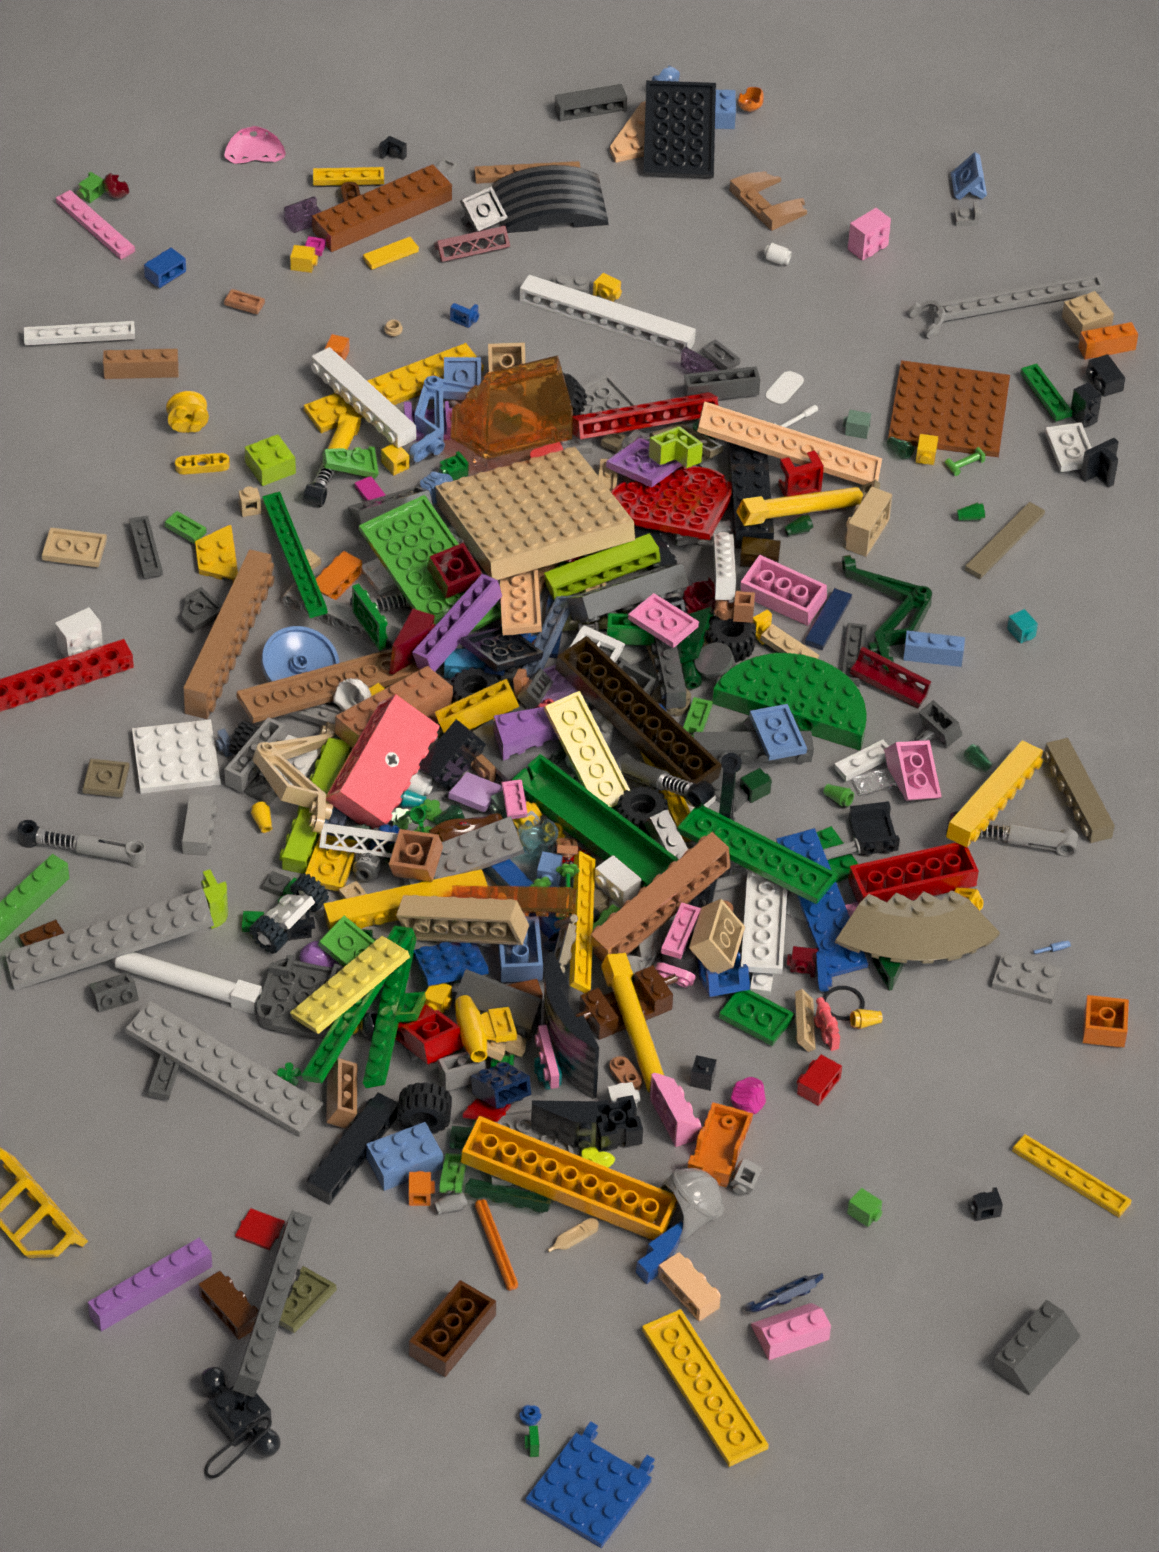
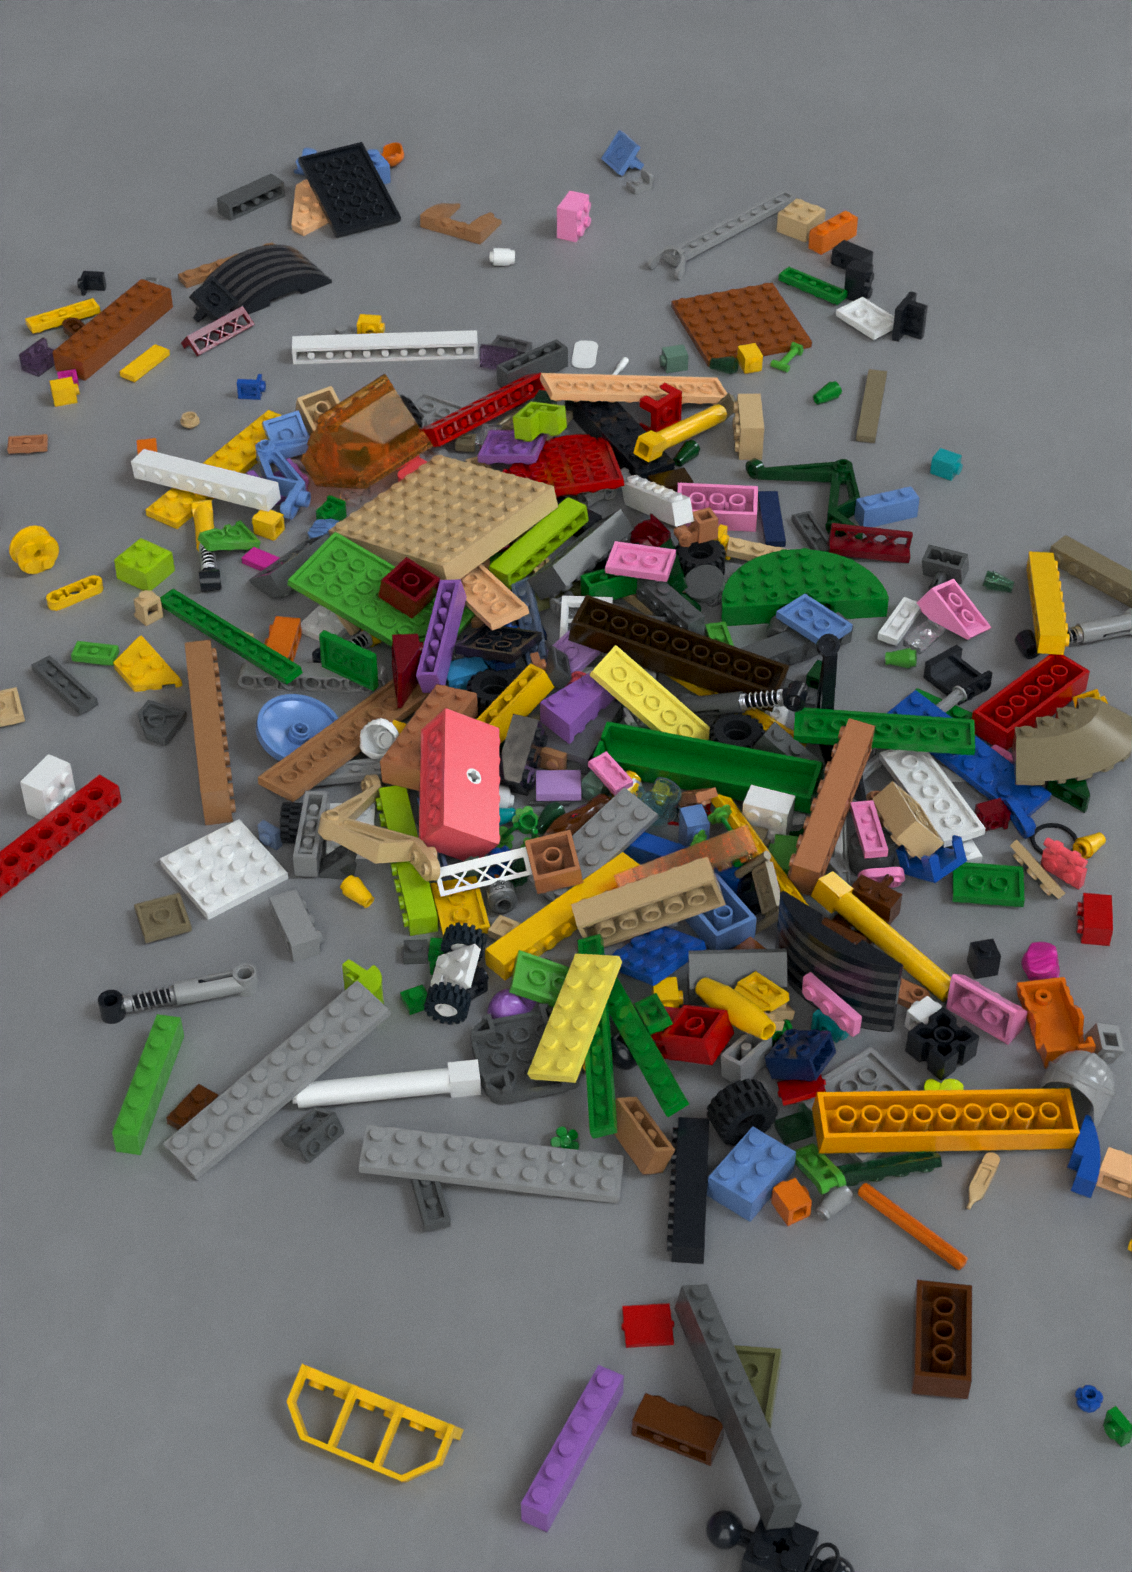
camera: 25 degrees left, 5 degrees down
(566, 1121) = (901, 1061): black slope -> none

